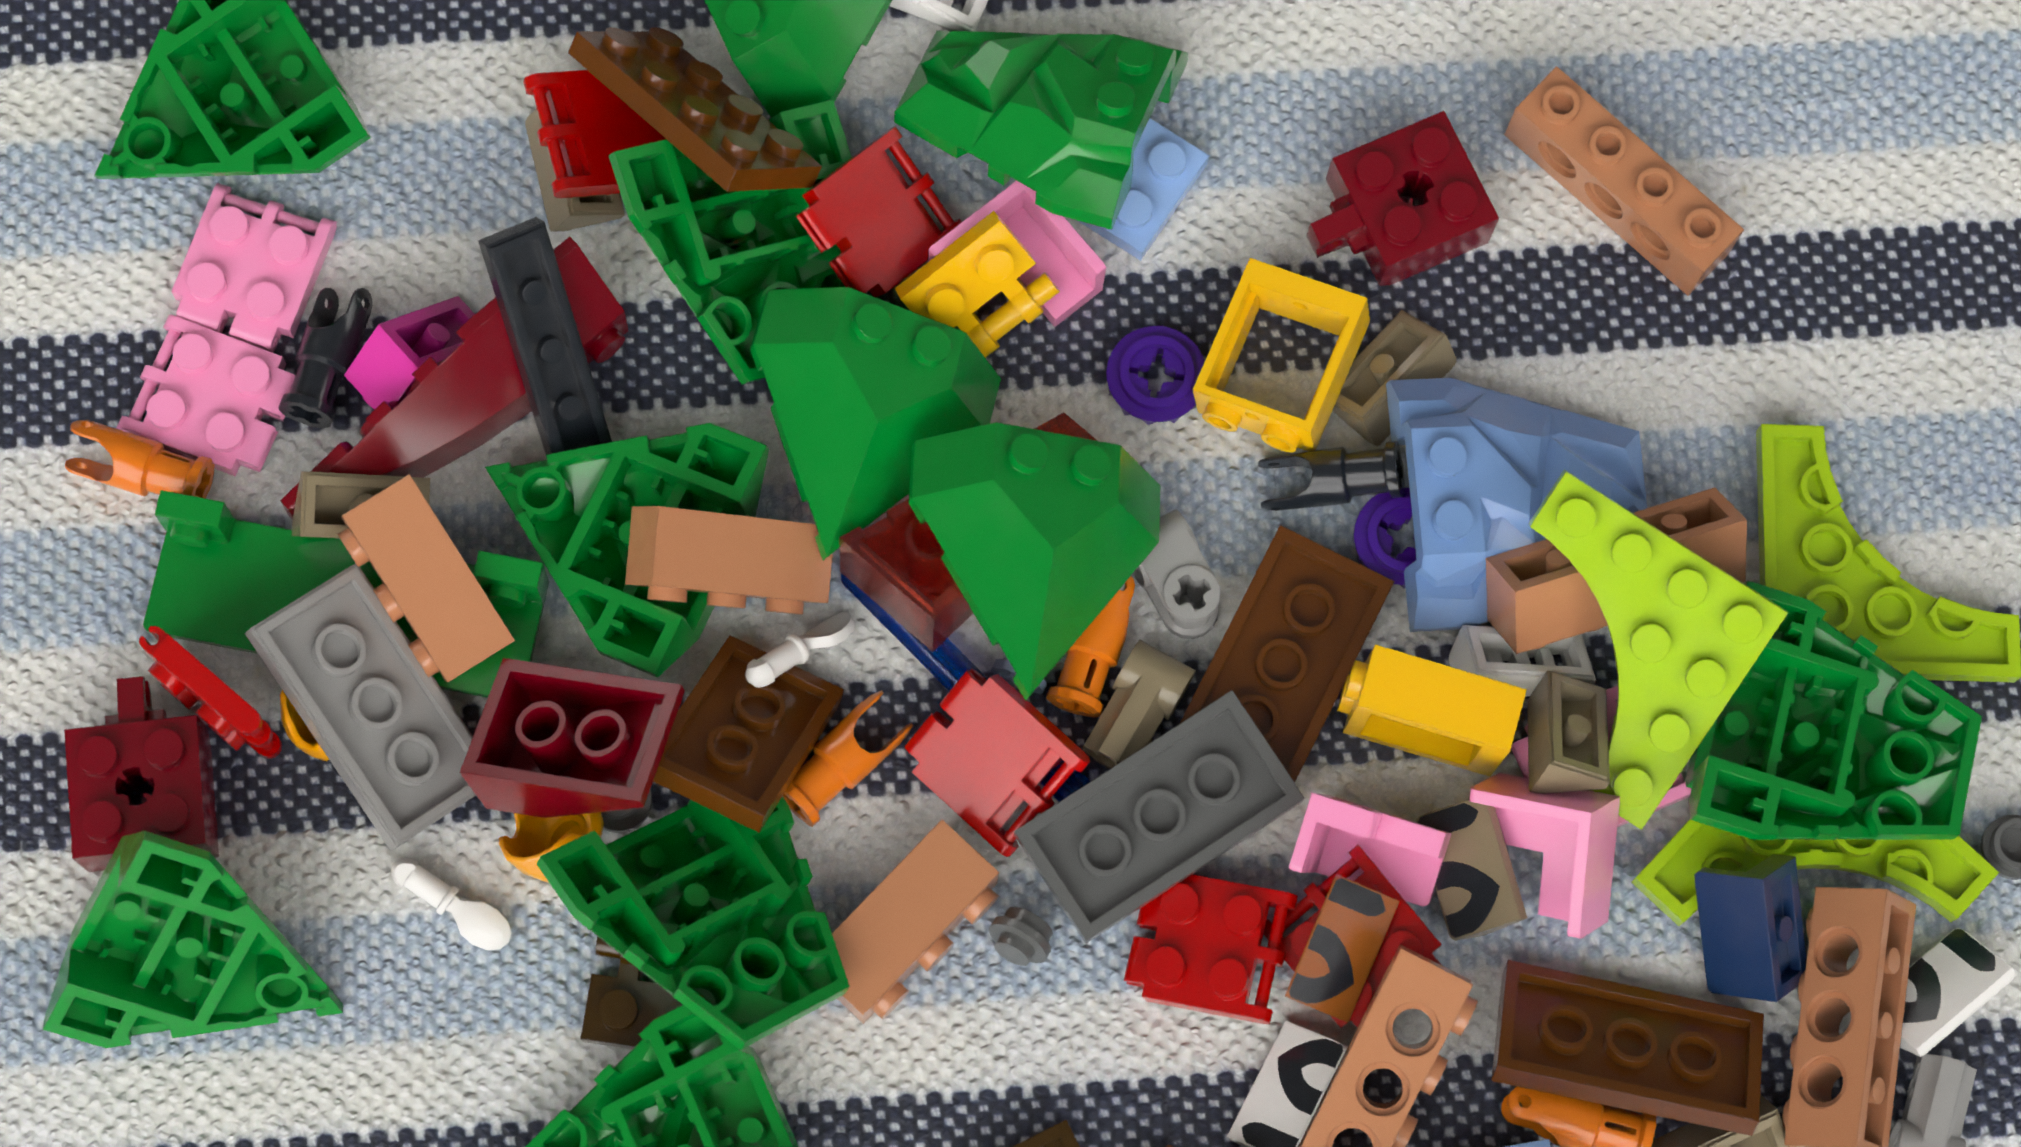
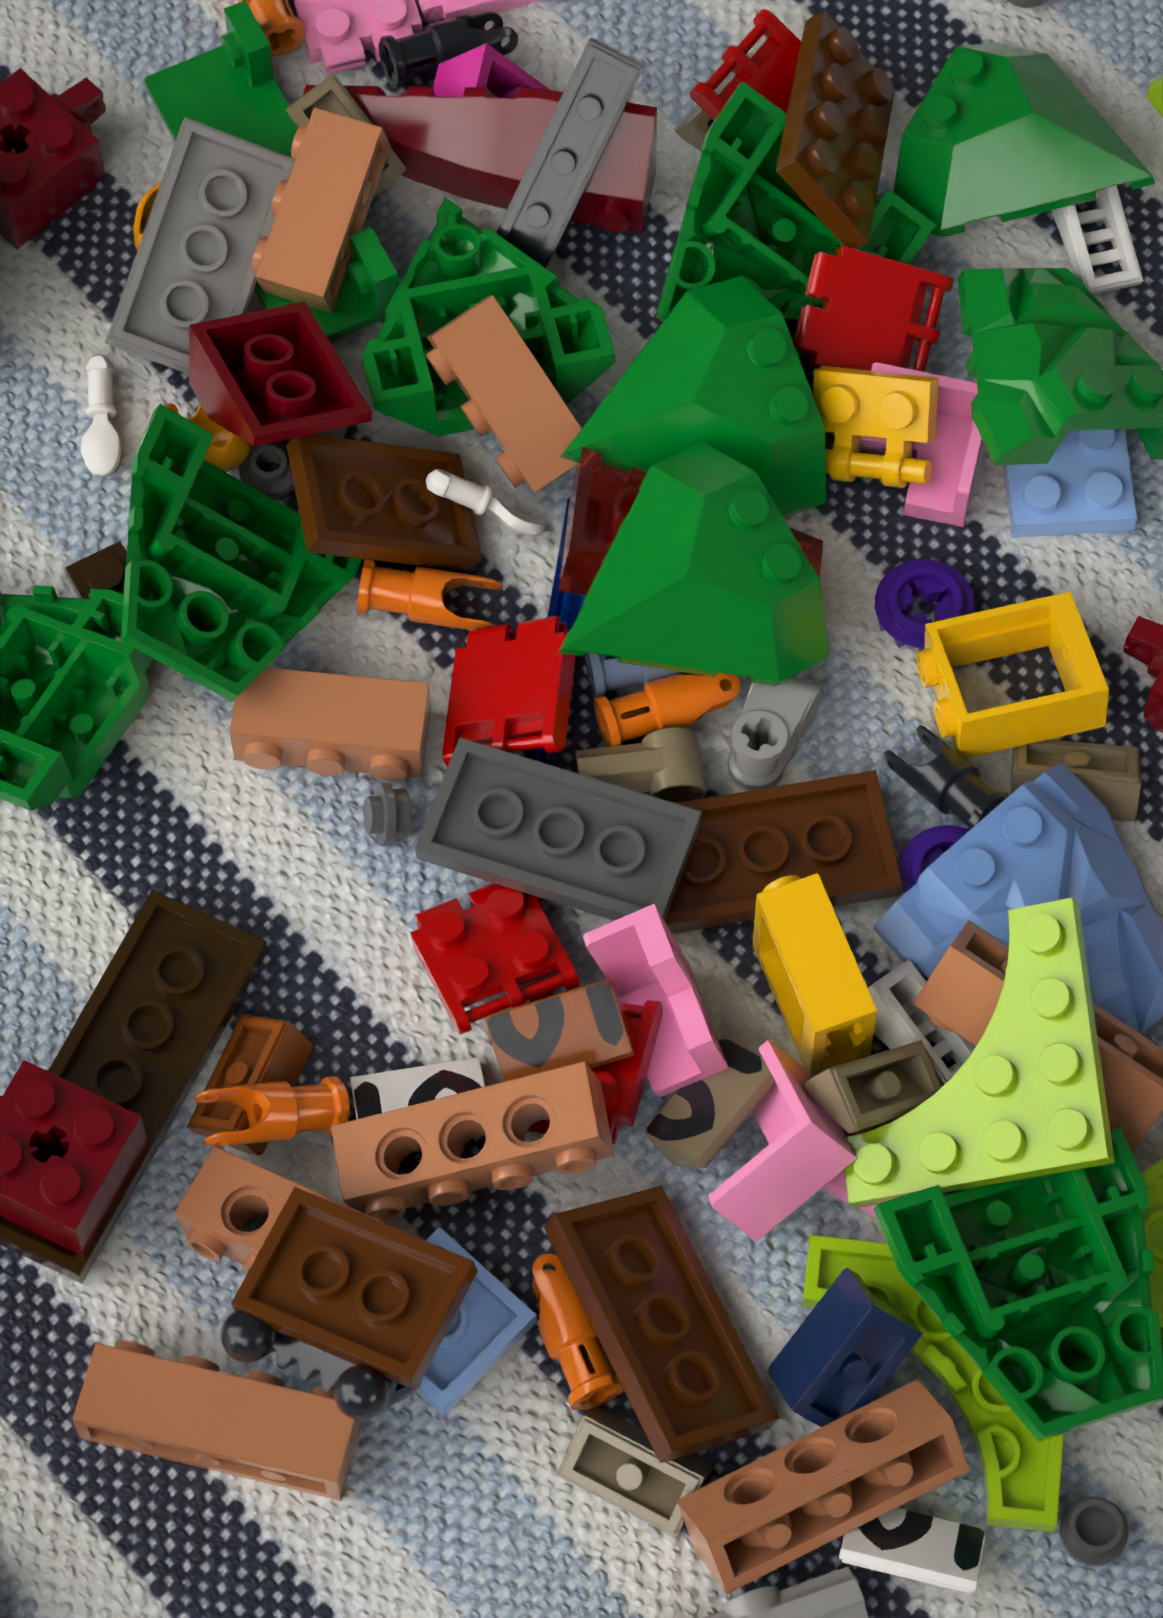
camera: 60 degrees right, 10 degrees down
(221, 707) = (123, 142): red plate -> none

